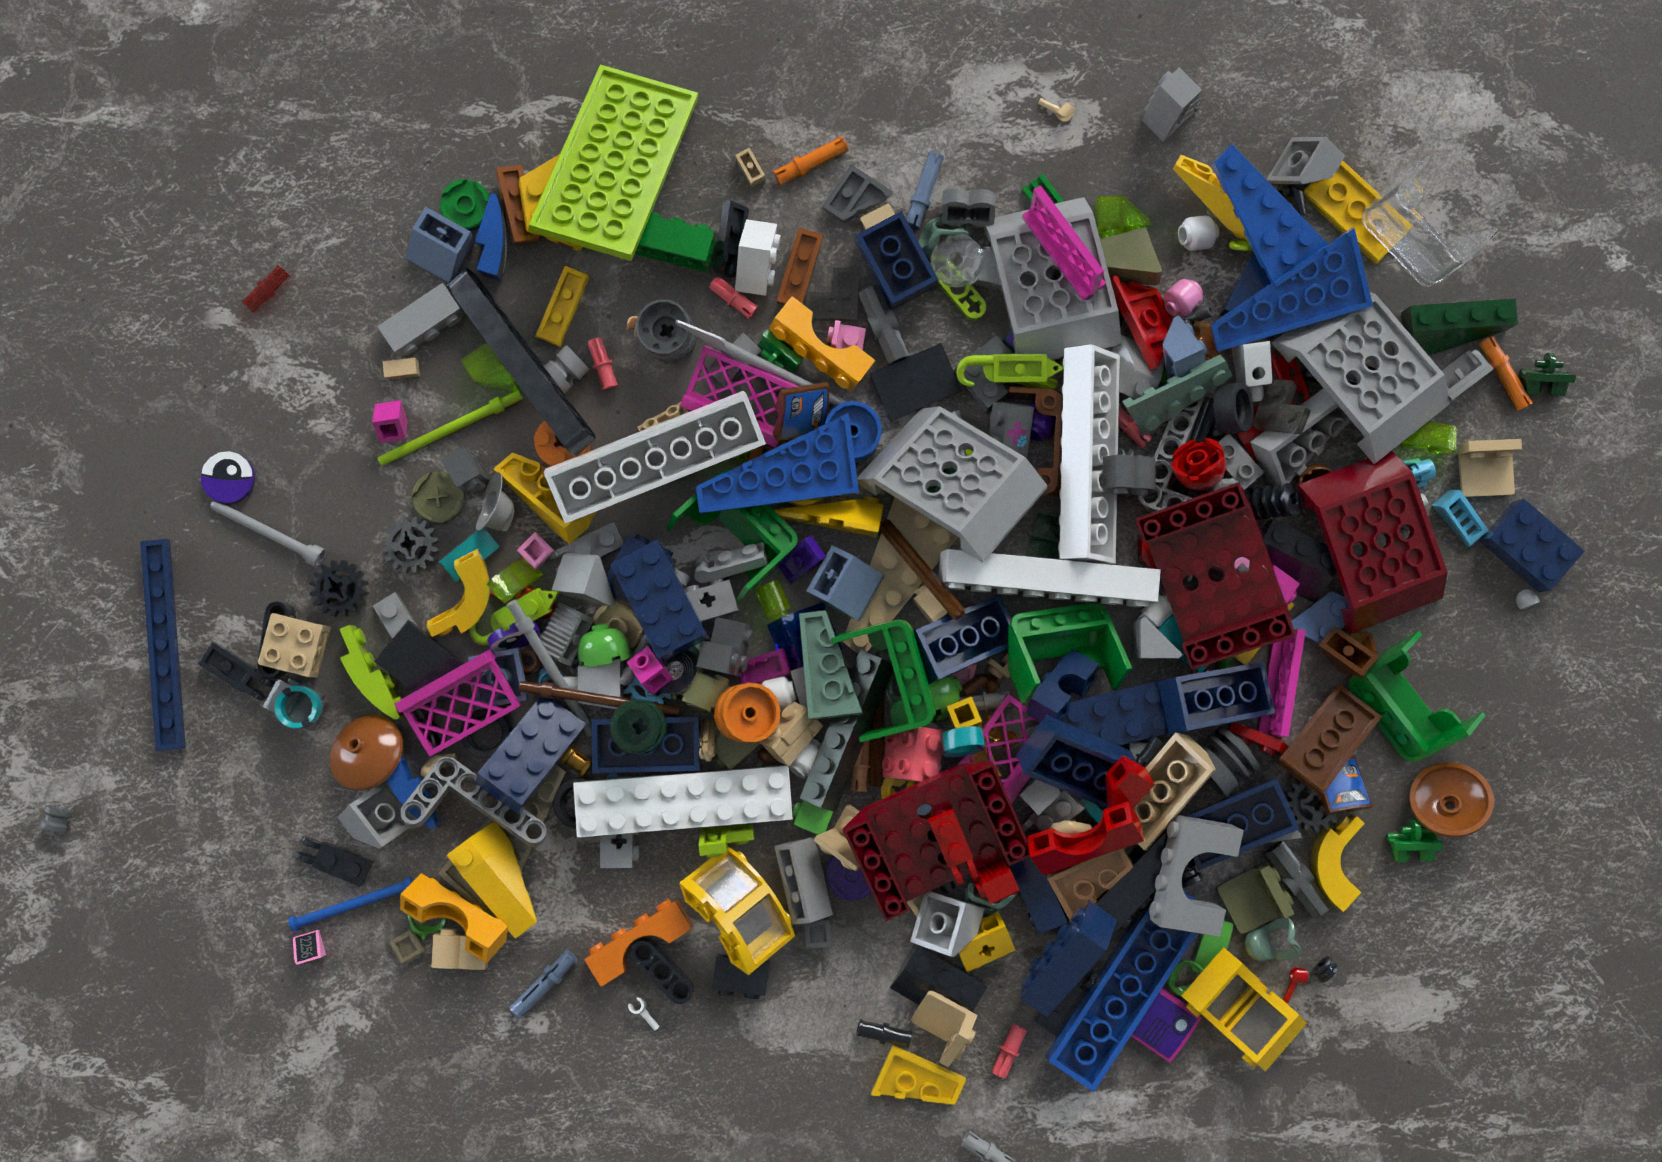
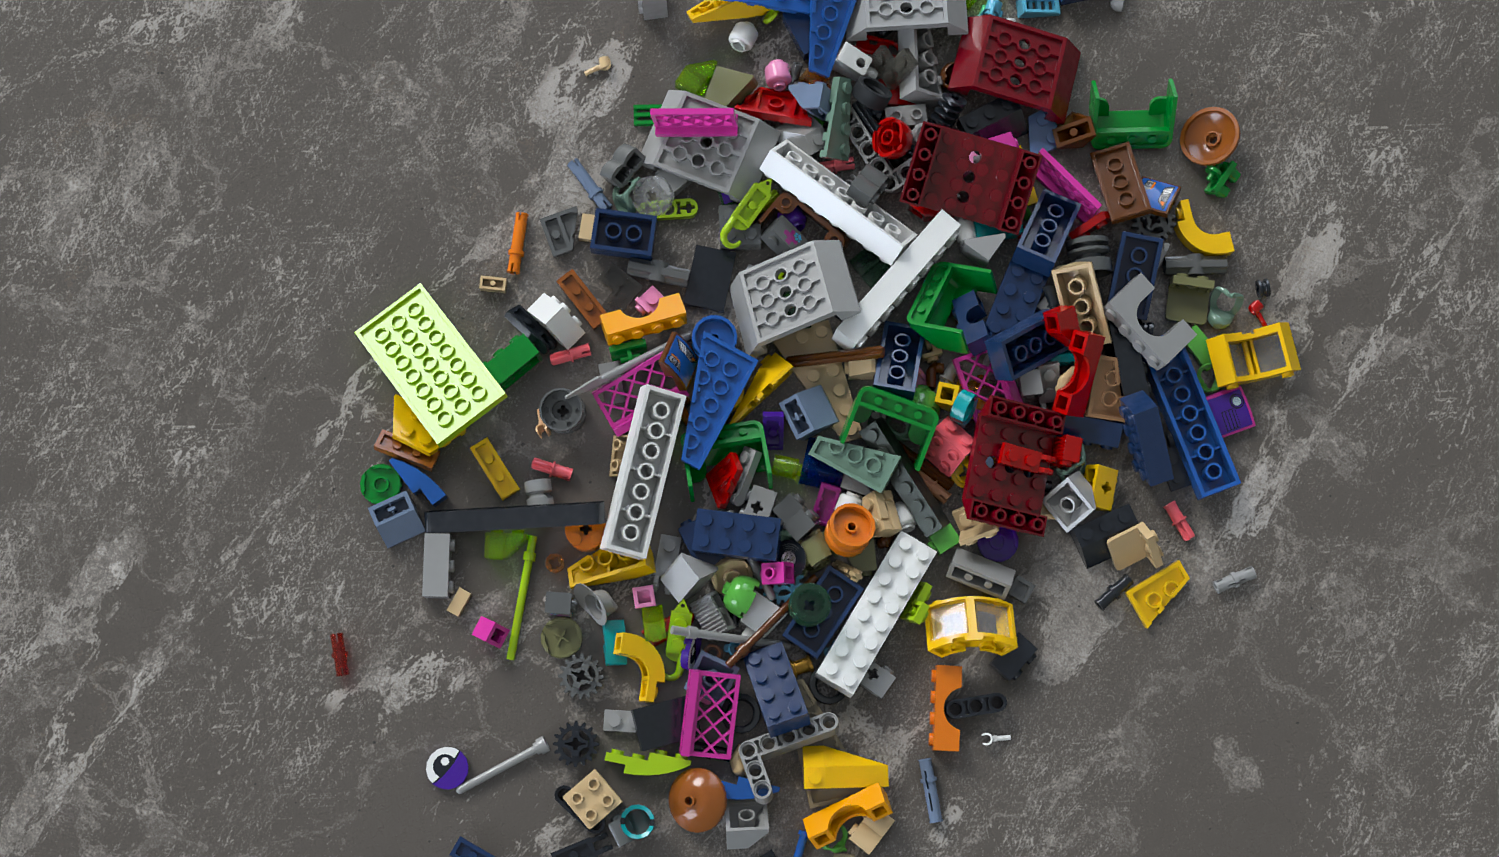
camera: 60 degrees left, 5 degrees down
(515, 439) = (560, 560): none -> clear orange bush
(712, 546) = (724, 478): none -> red wing

